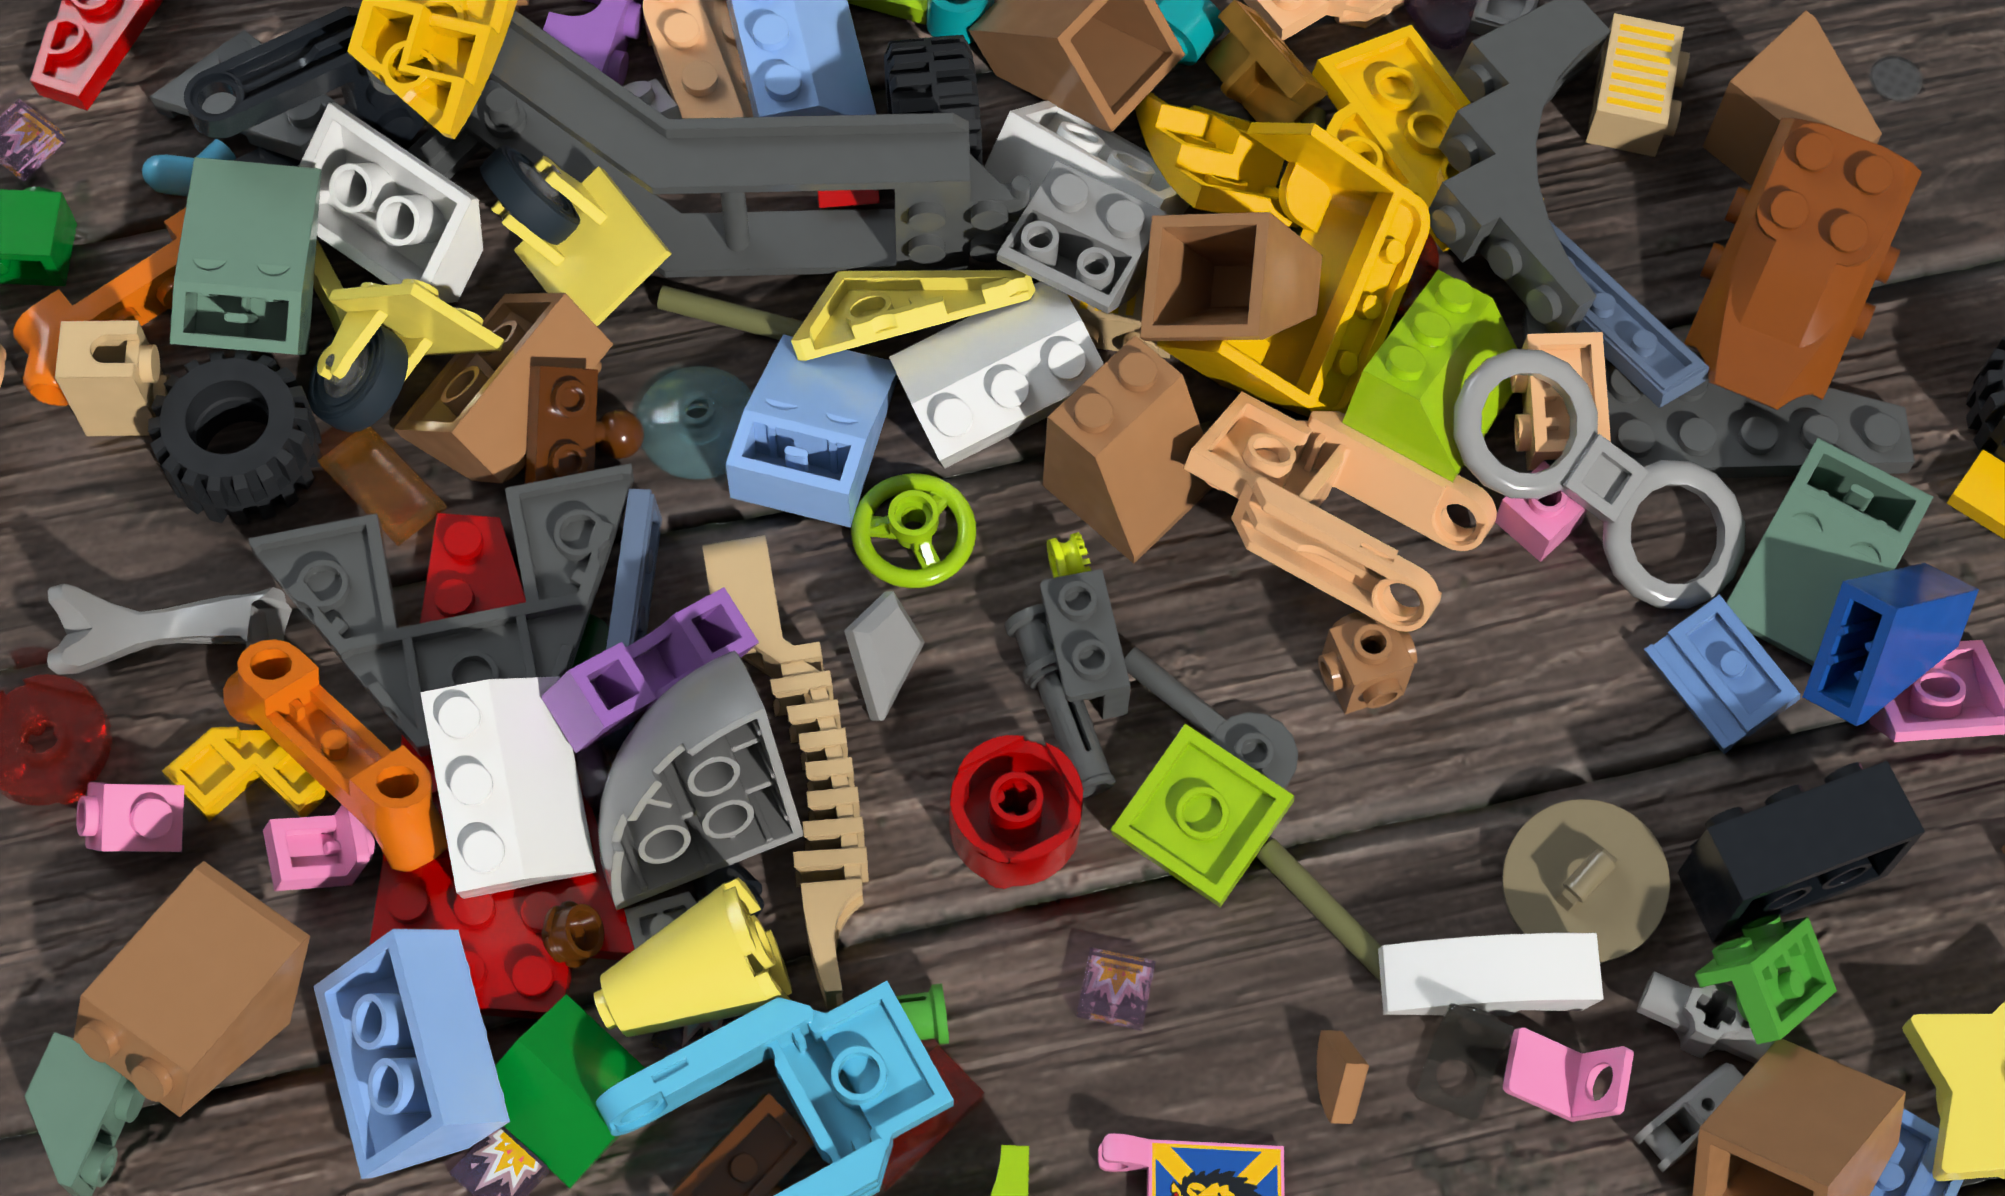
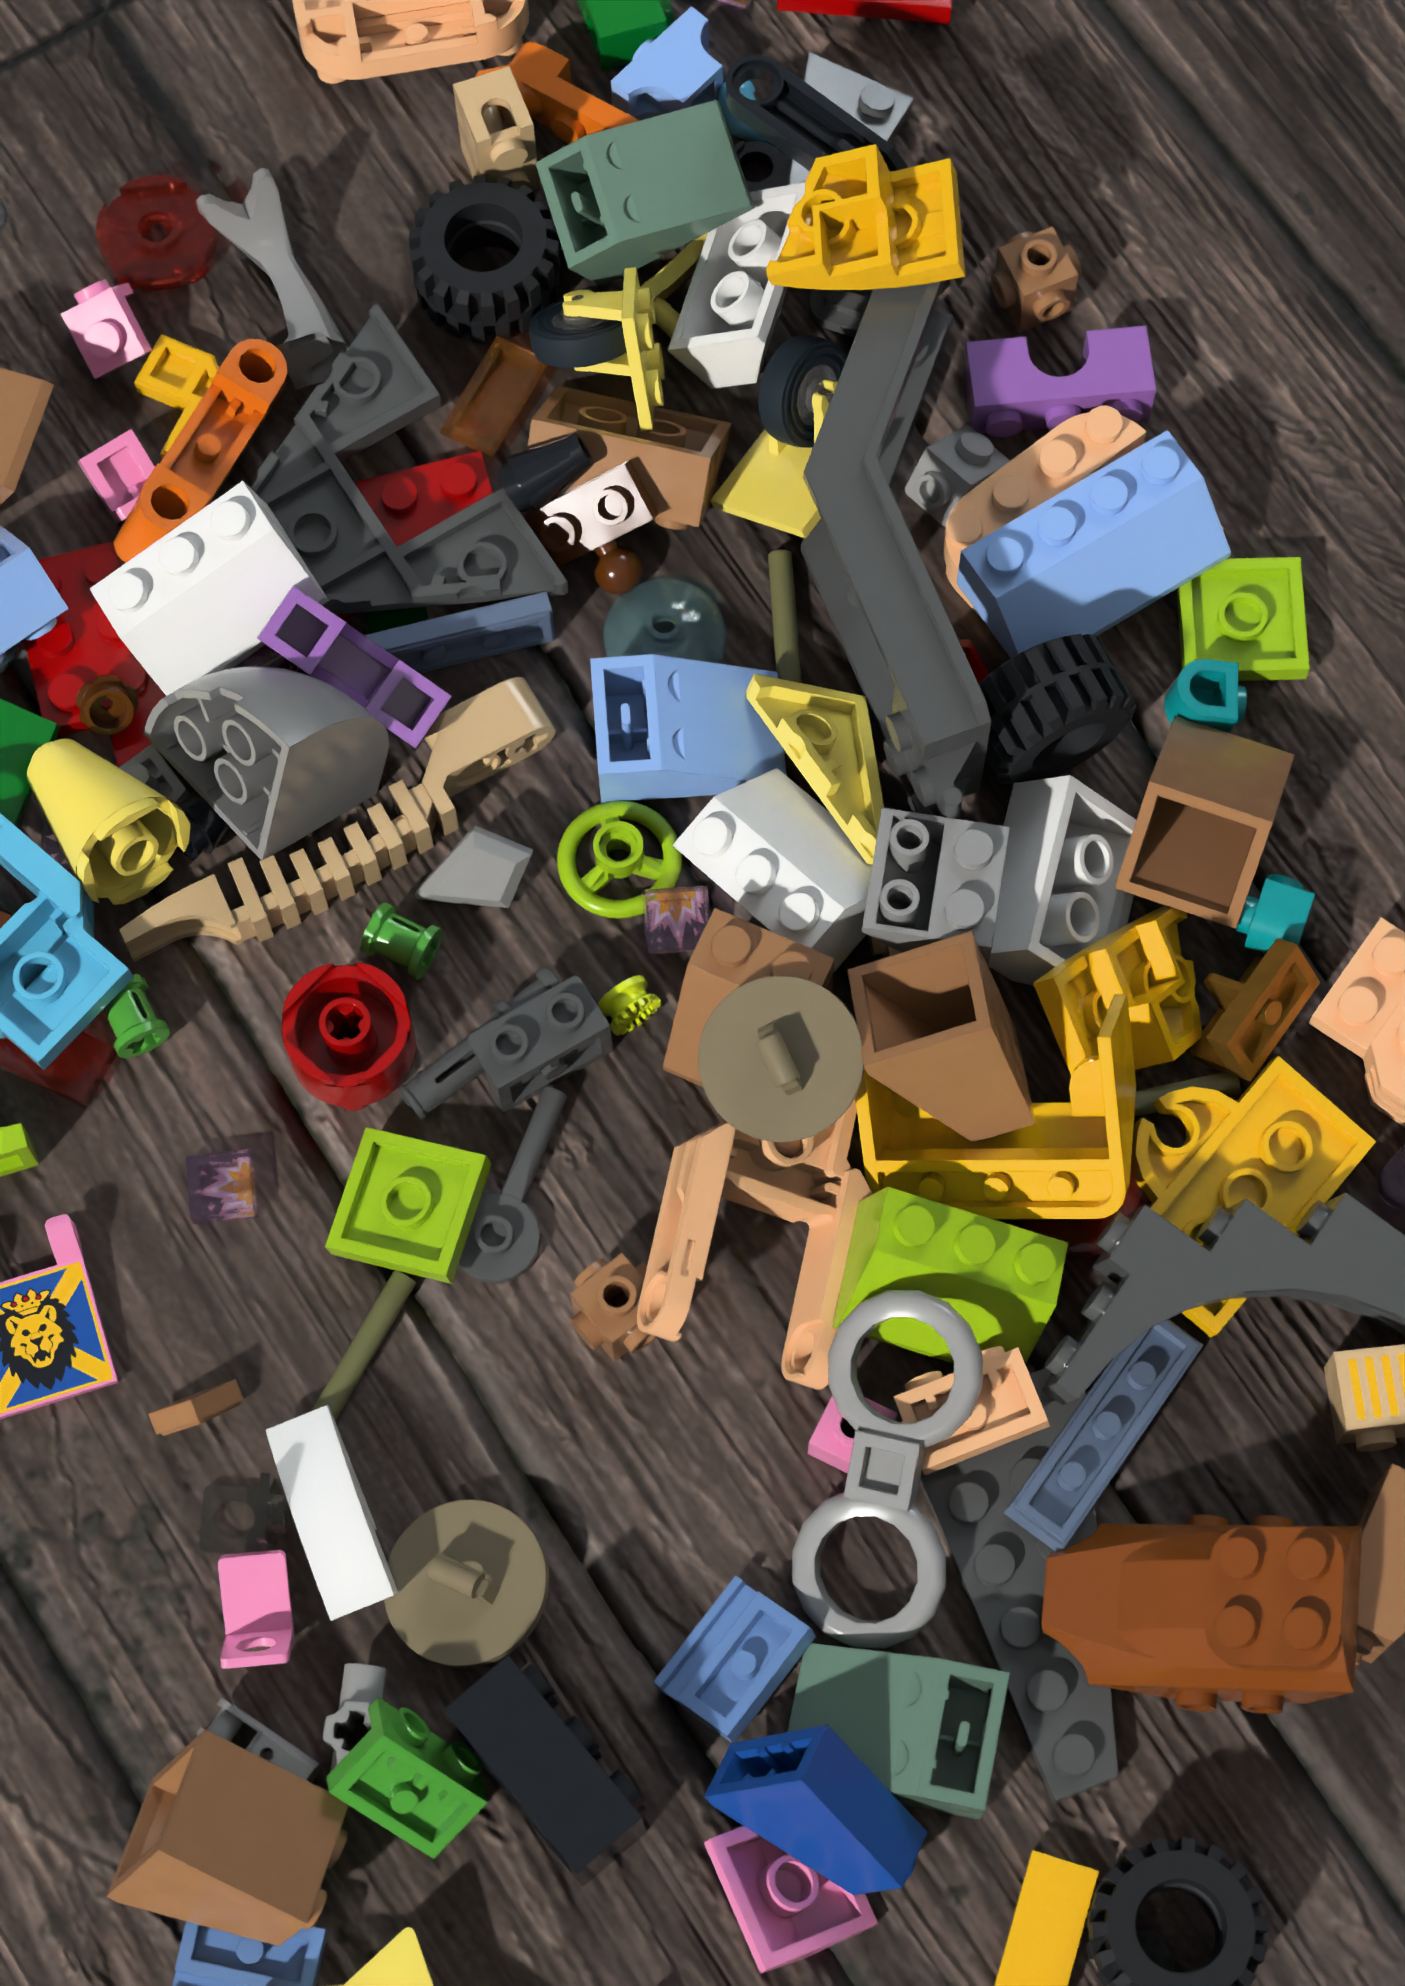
camera: 75 degrees right, 5 degrees up
(115, 213) = (670, 71): none -> light blue brick
(508, 442) = (543, 471): none -> black cone
(928, 741) = (401, 940): none -> bright green bush
(998, 497) = (674, 918): none -> tile
(1215, 410) = (781, 1058): none -> dark tan shield

